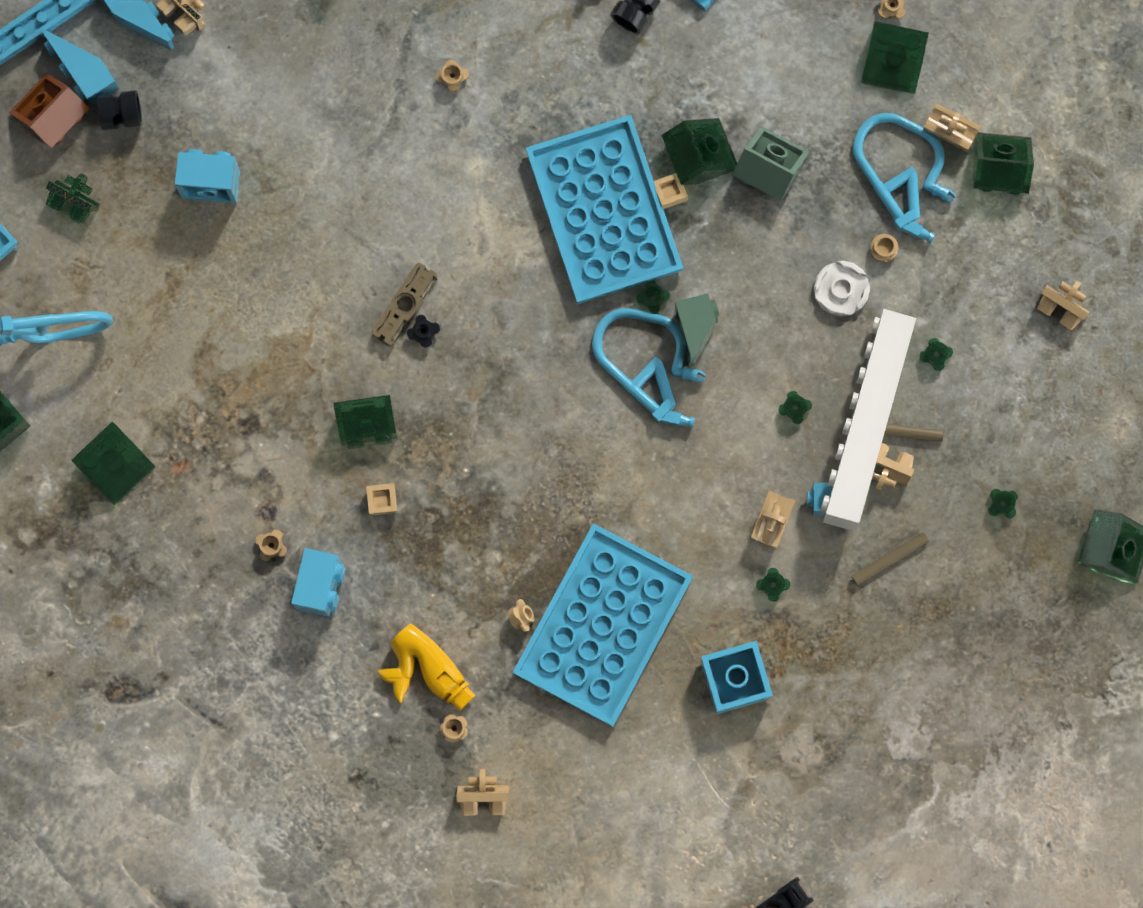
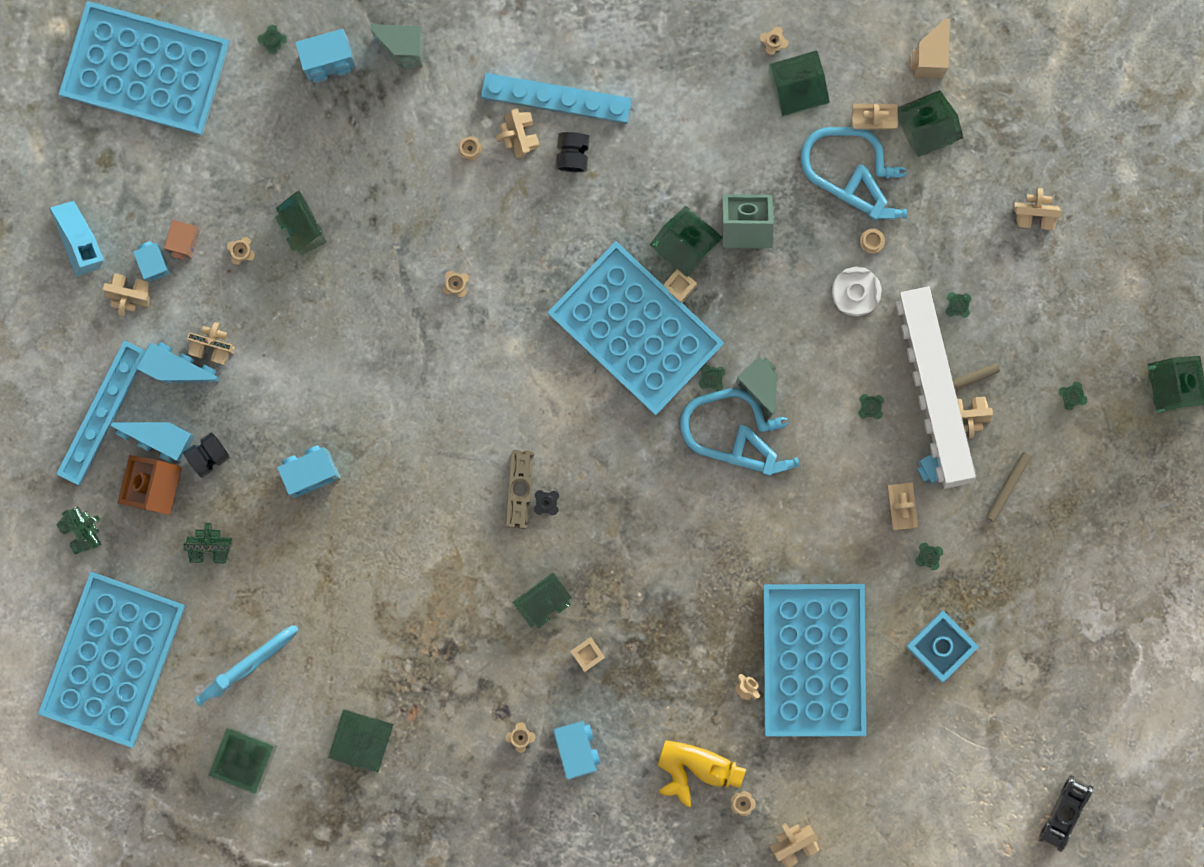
camera: 25 degrees left, 5 degrees up
(1039, 95) = (932, 53): none -> tan slope

